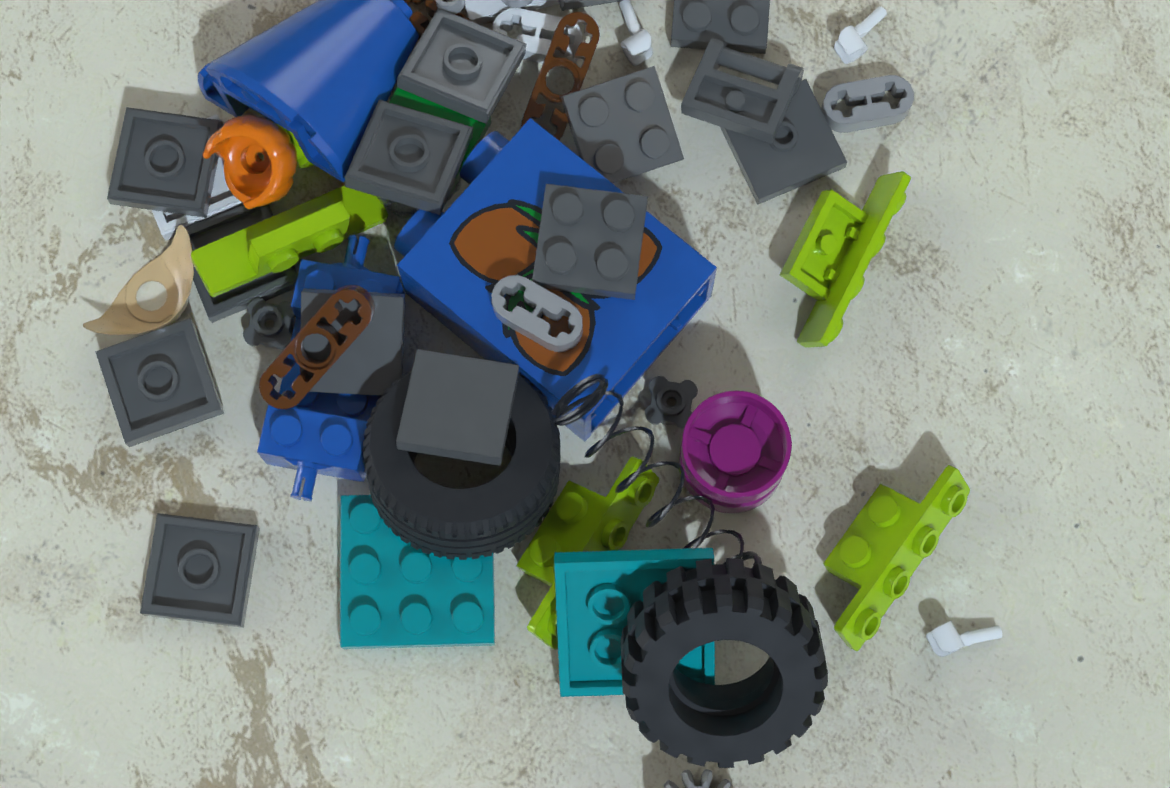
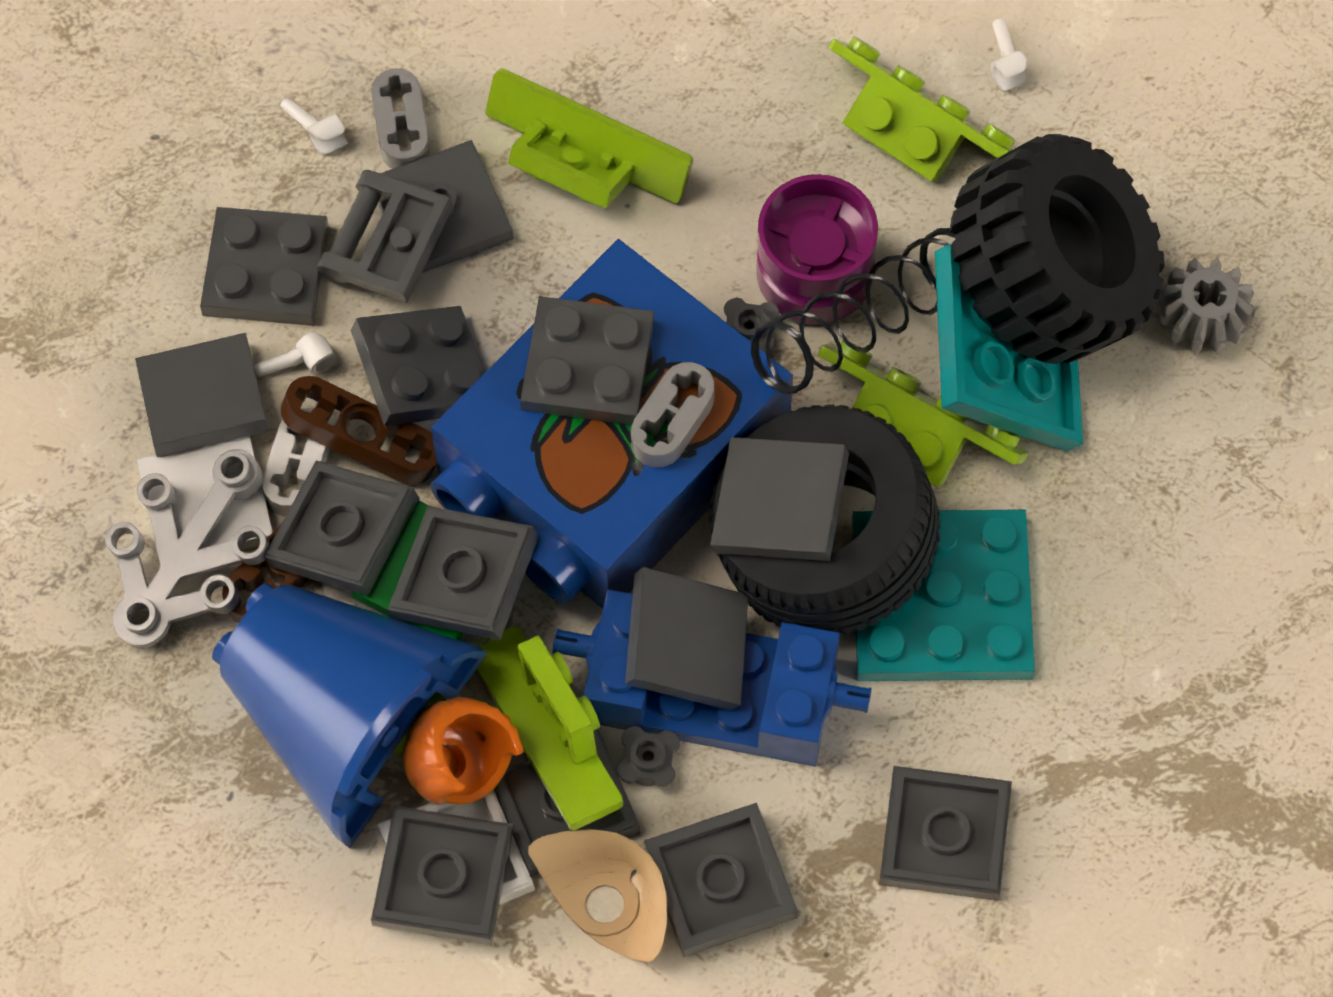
camera: 90 degrees left, 10 degrees down
(304, 383) = (723, 669): reddish brown beam -> none

